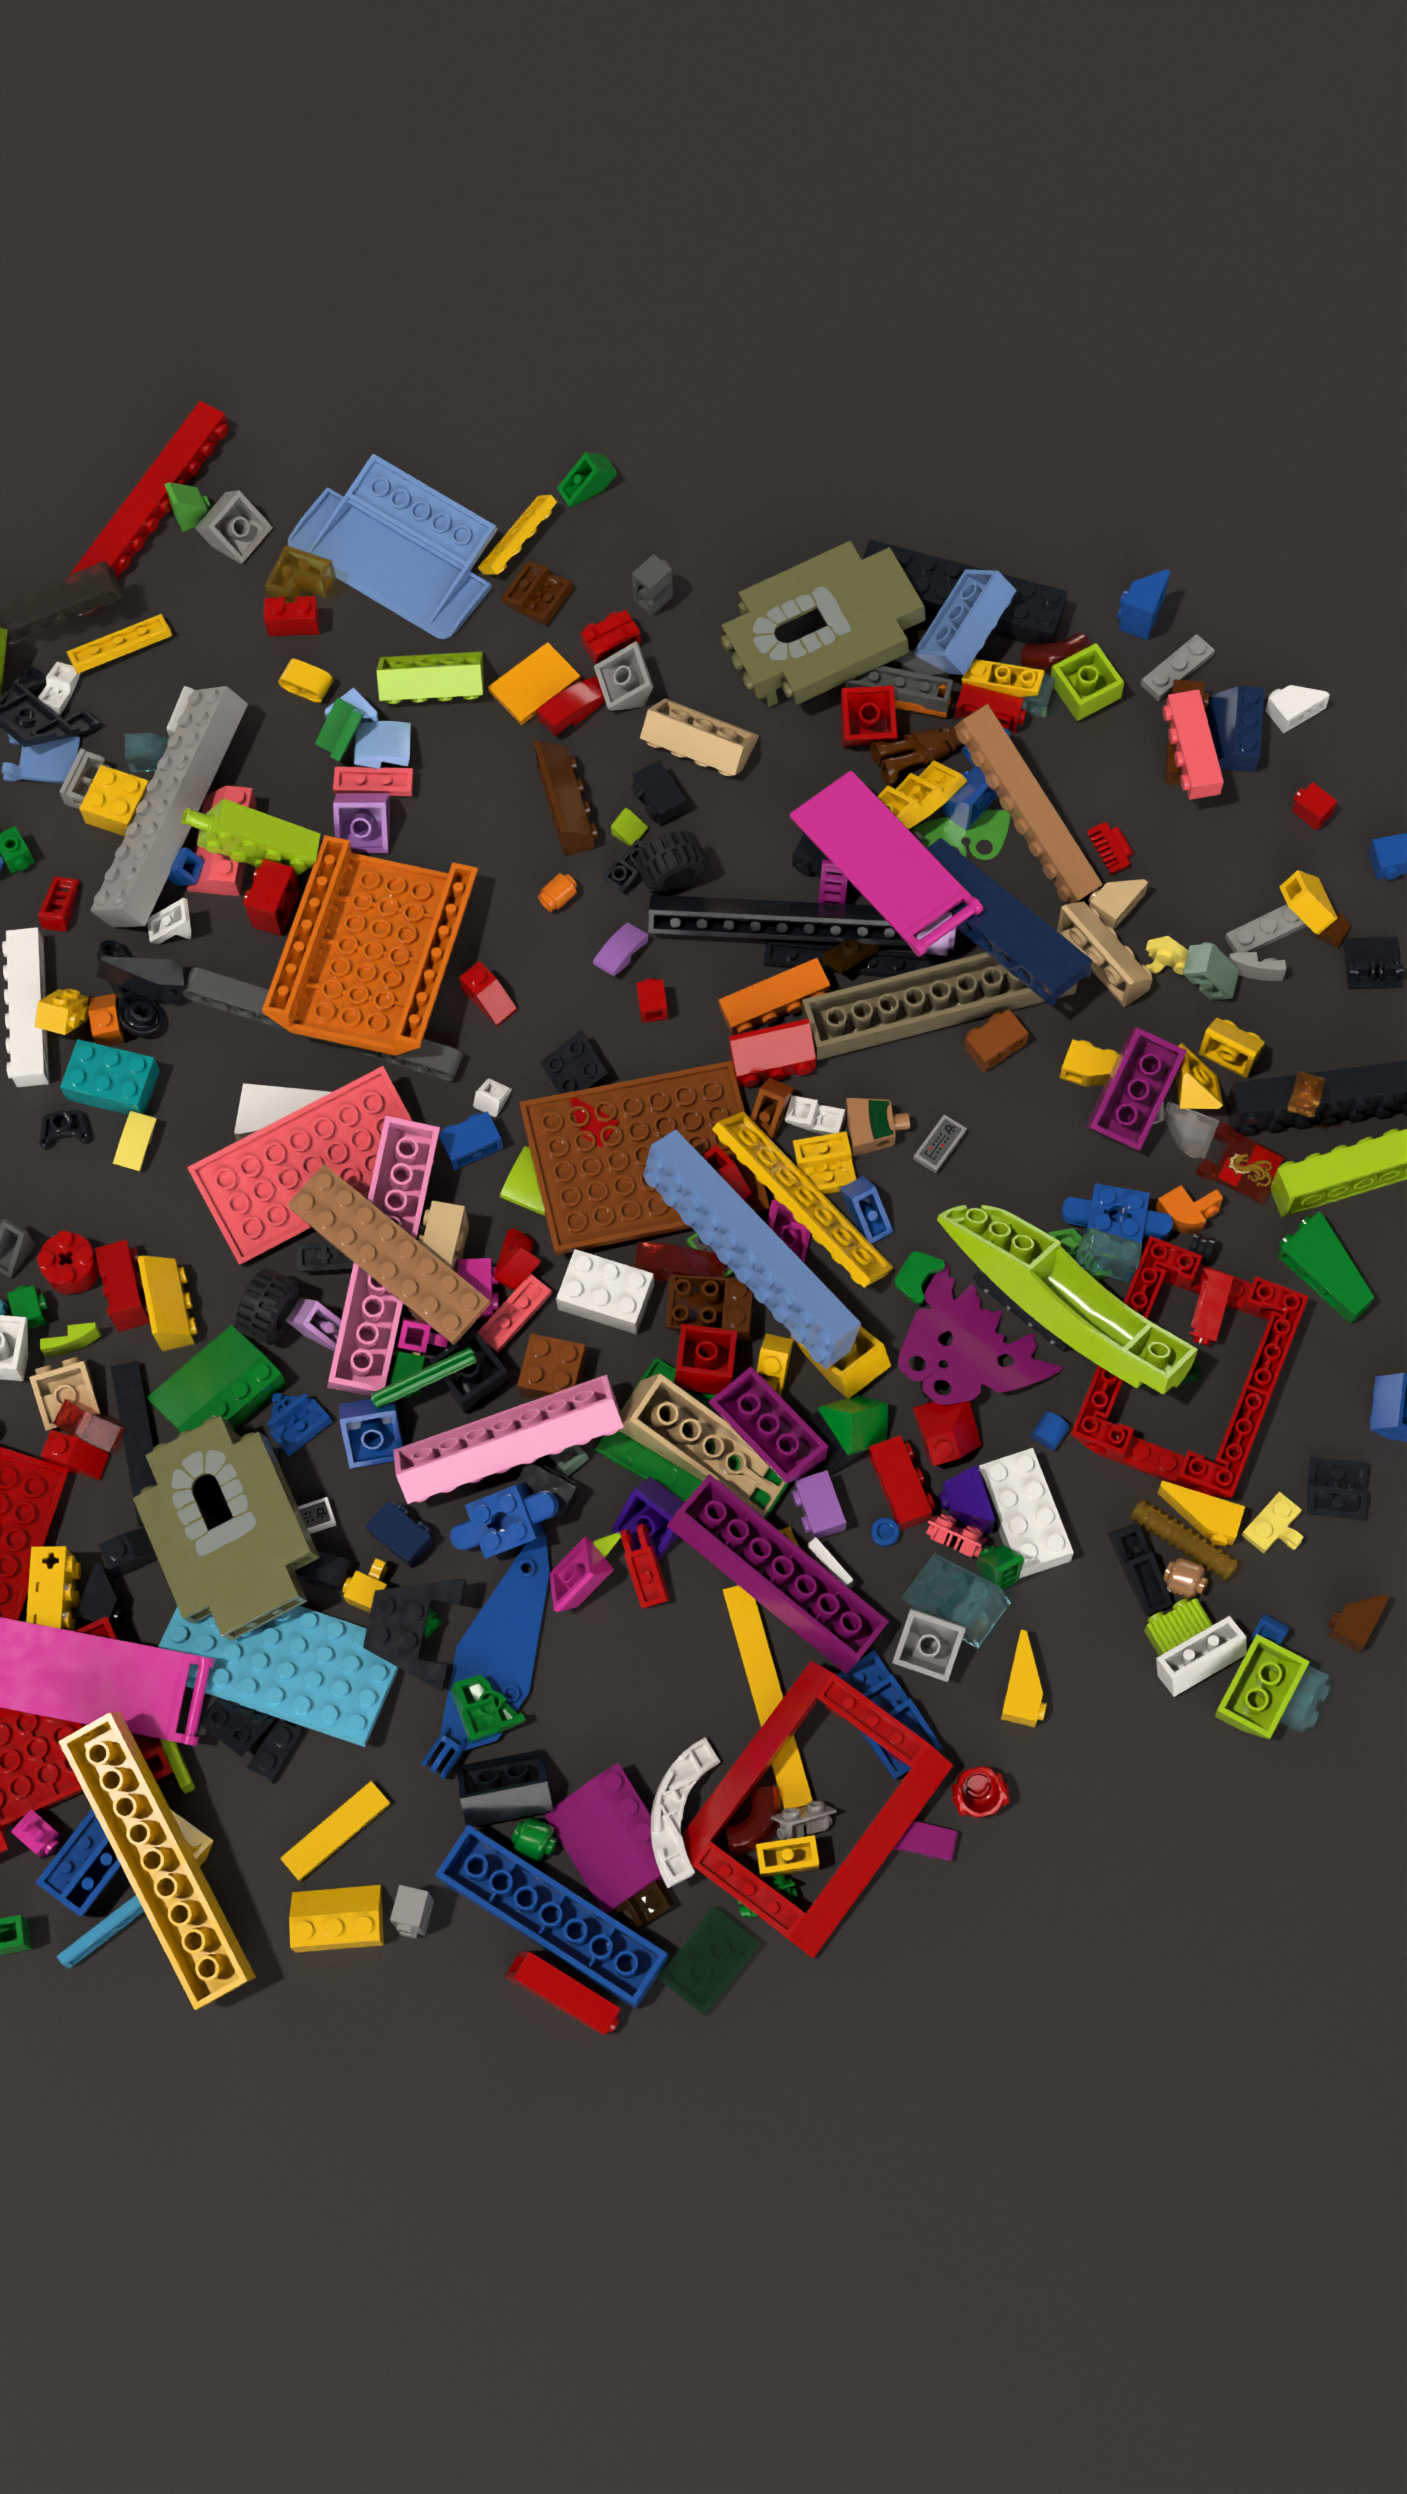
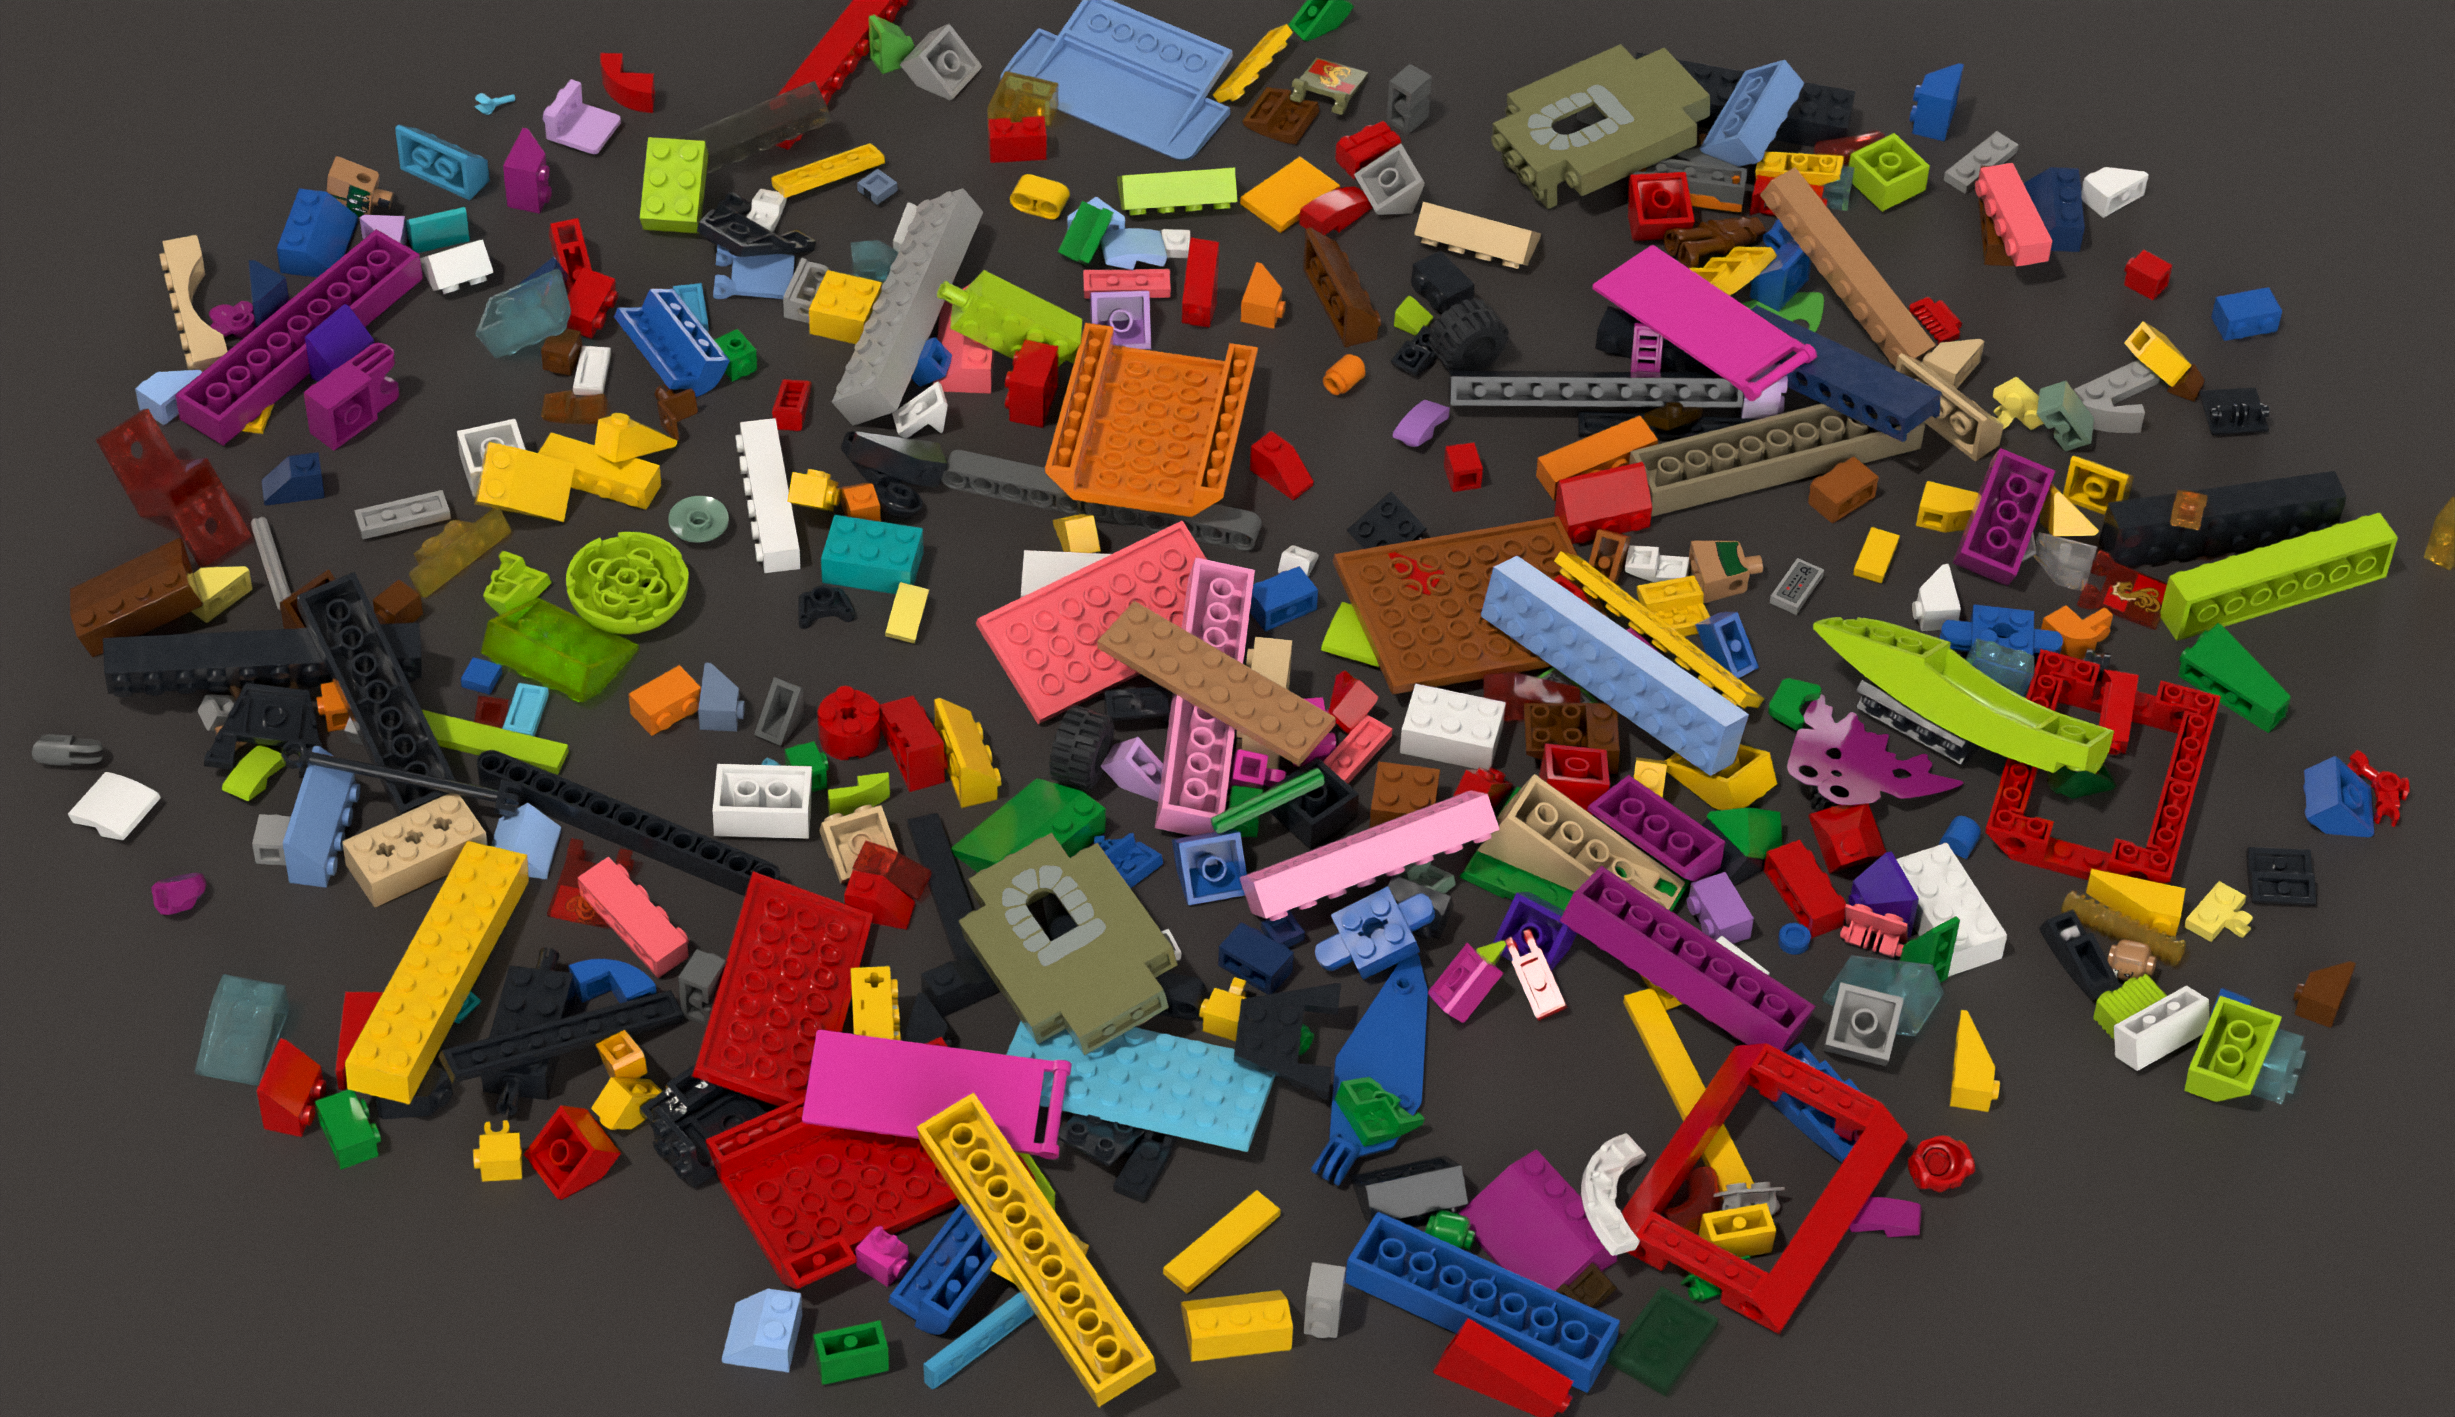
camera: 10 degrees left, 20 degrees down
(161, 663) = (877, 186): none -> sand blue plate
(295, 1062) = (1077, 533): none -> yellow slope
(424, 735) = (1176, 242): none -> white plate
(429, 1508) = (1283, 930): none -> dark blue plate
(434, 795) = (1200, 283): none -> red slope
(493, 804) = (1262, 299): none -> orange slope
(587, 556) = (1329, 80): none -> olive flag
(623, 1361) = (1485, 781): none -> red slope
(1017, 1112) = (1876, 555): none -> yellow tile
(1064, 1170) = (1937, 601): none -> white slope

